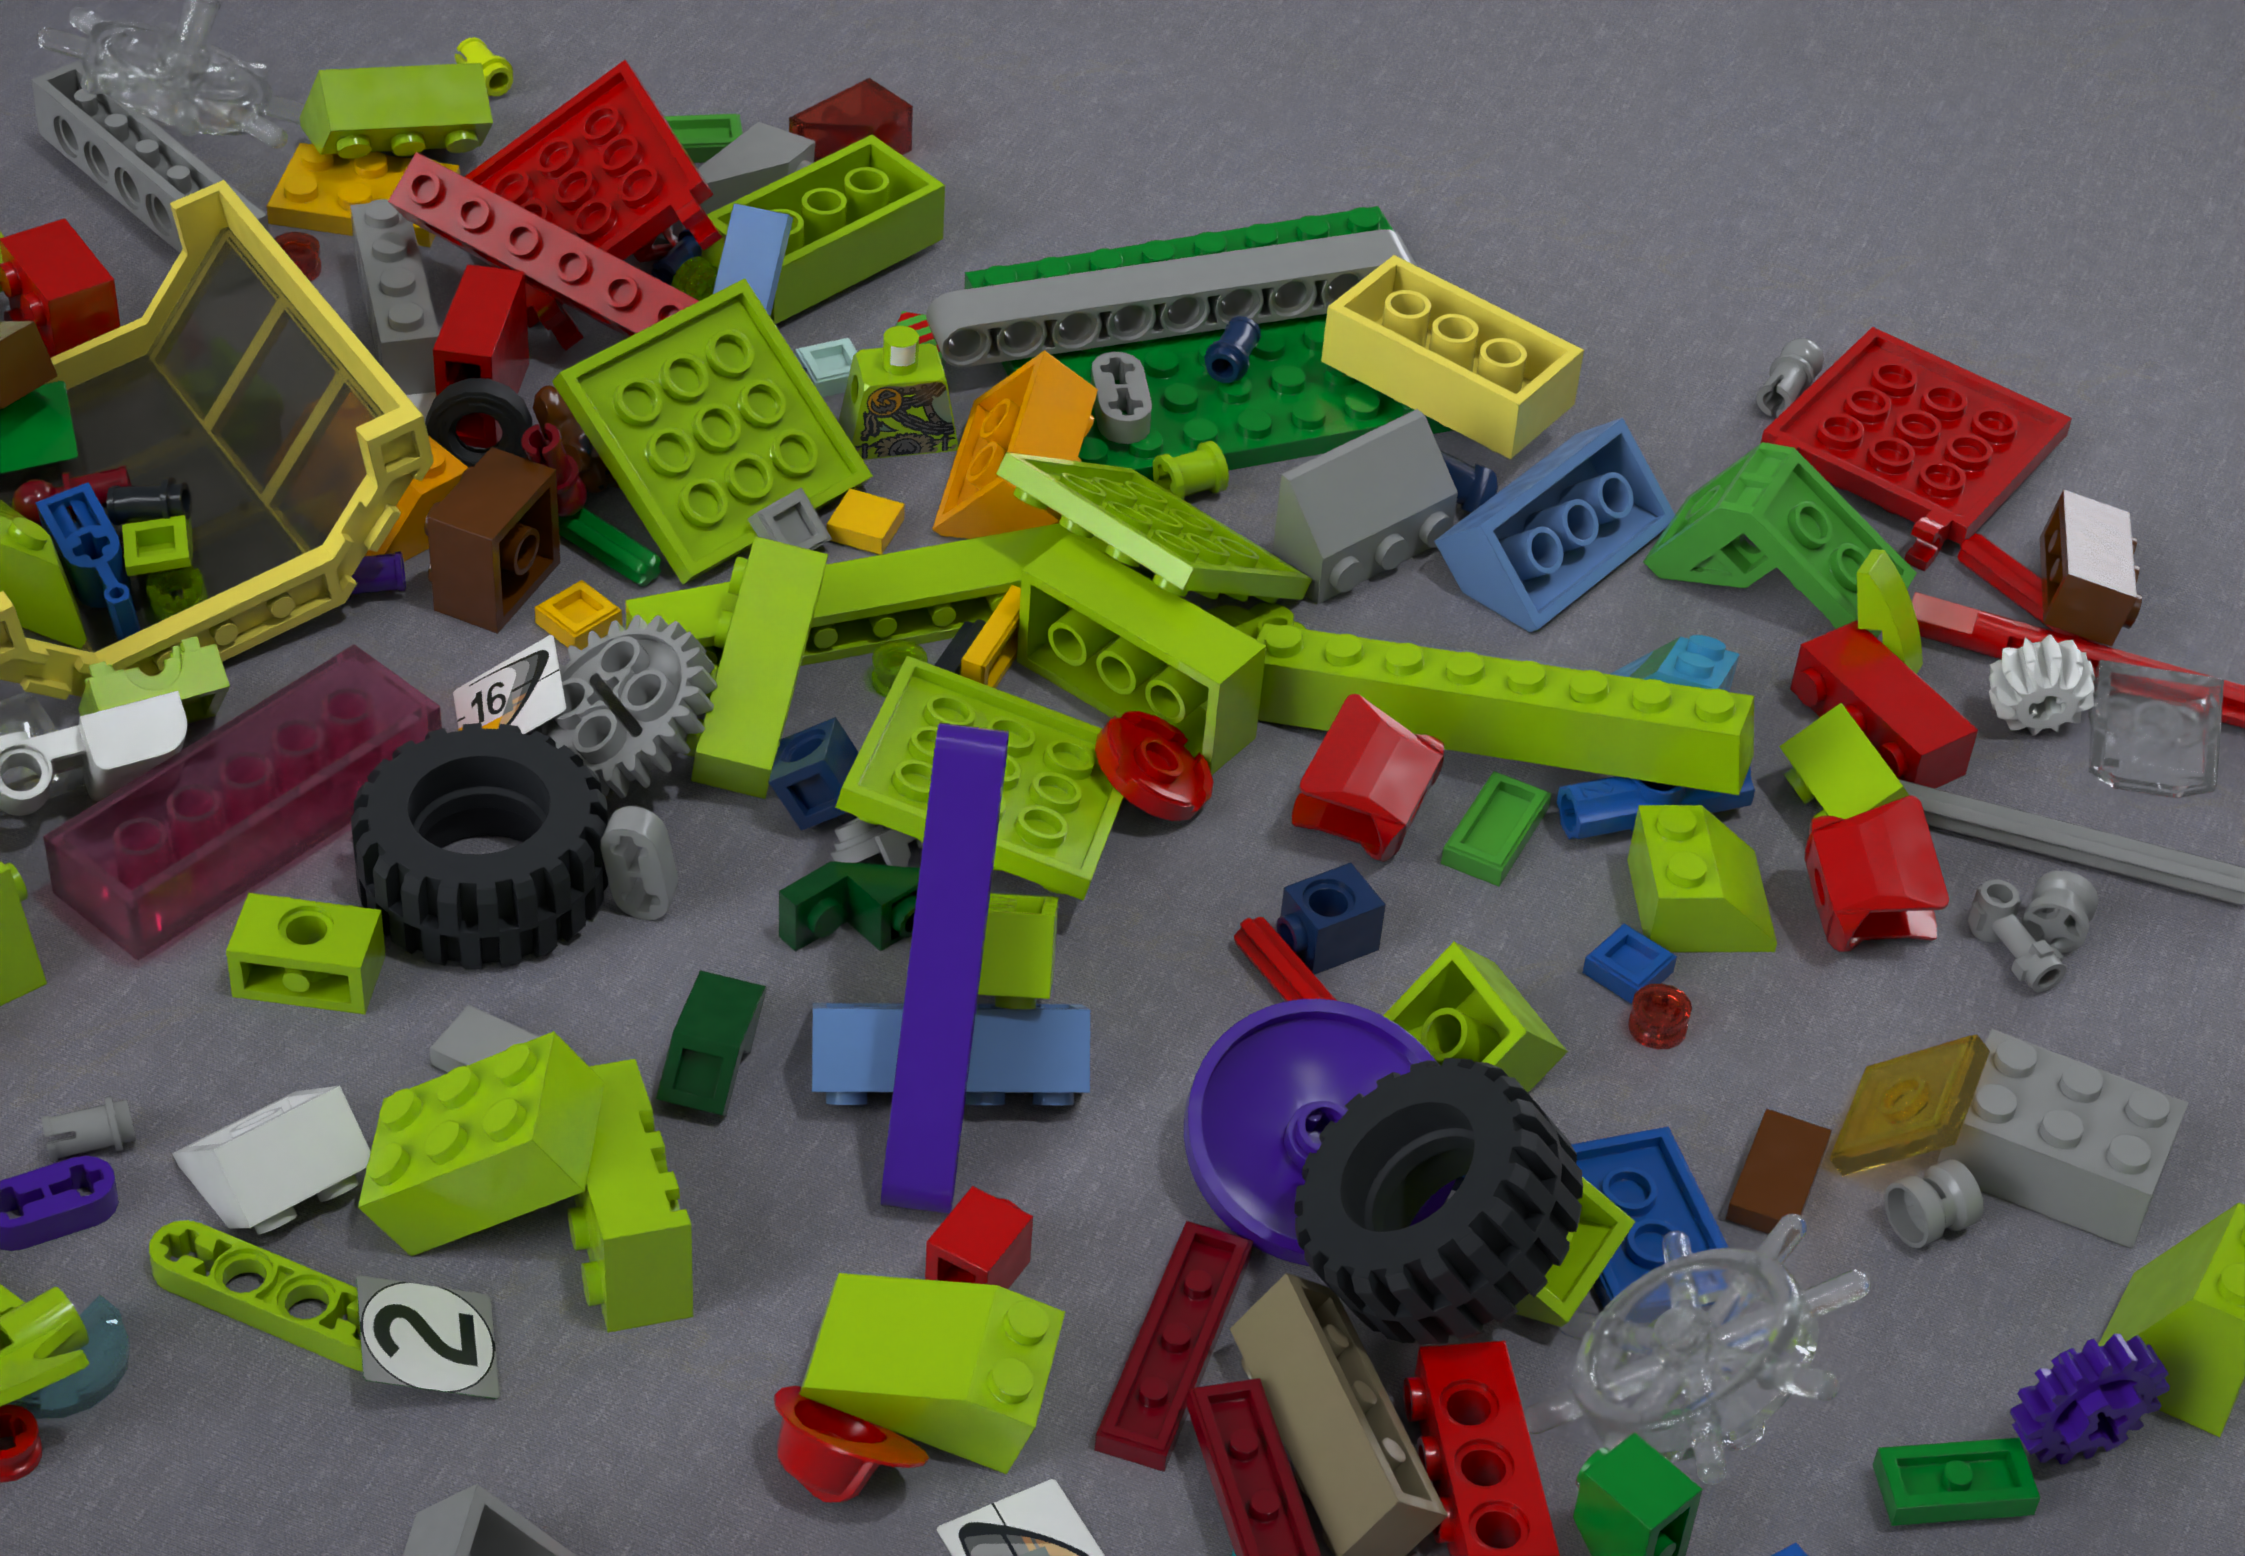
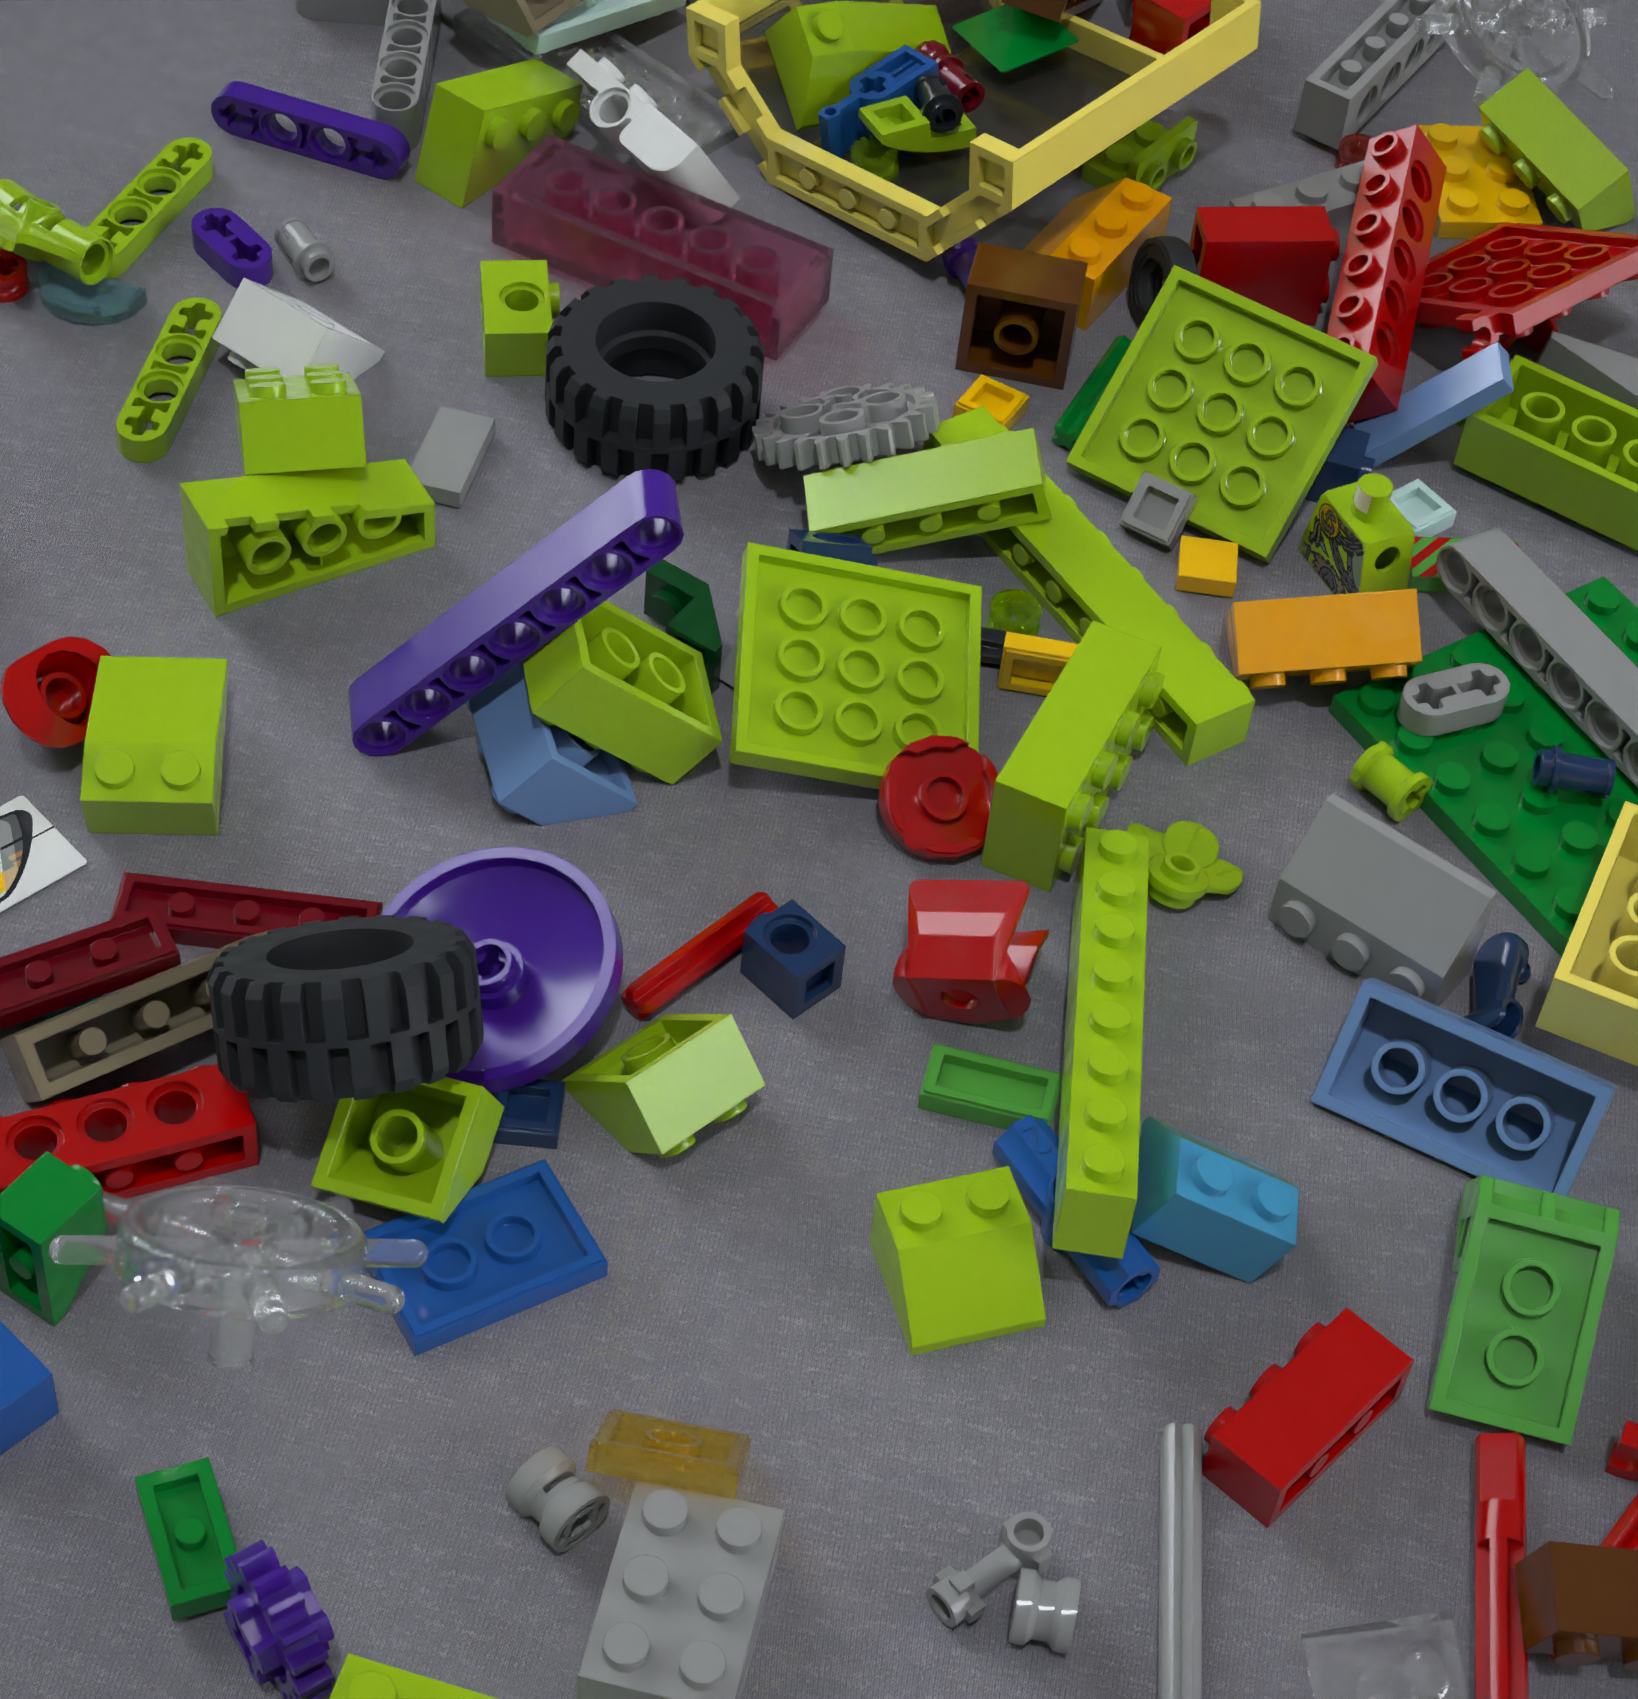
camera: 75 degrees right, 5 degrees up
(190, 670) = (759, 179): lime brick -> none
(427, 1337) = (137, 458): sticker -> none
(516, 692) = (849, 374): sticker -> none
(551, 453) = (1103, 320): dark red pin -> none
(653, 863) = (666, 448): light grey beam -> none
(710, 1041) = (475, 553): dark green slope -> none
(980, 1242) = (304, 763): red brick -> none
(1152, 529) = (1234, 728): lime plate -> none
(1628, 962) = (833, 1220): blue tile -> none
(1658, 1029) = (768, 1267): clear red bush -> none
(1778, 1171) = (576, 1367): reddish brown tile -> none
(1839, 767) = (1157, 1379): lime brick -> none
(1875, 875) = (1002, 1404): red piece -> none
(1887, 607) = (1431, 1391): lime slope -> none
(2041, 685) = (1400, 1560): white gear -> none

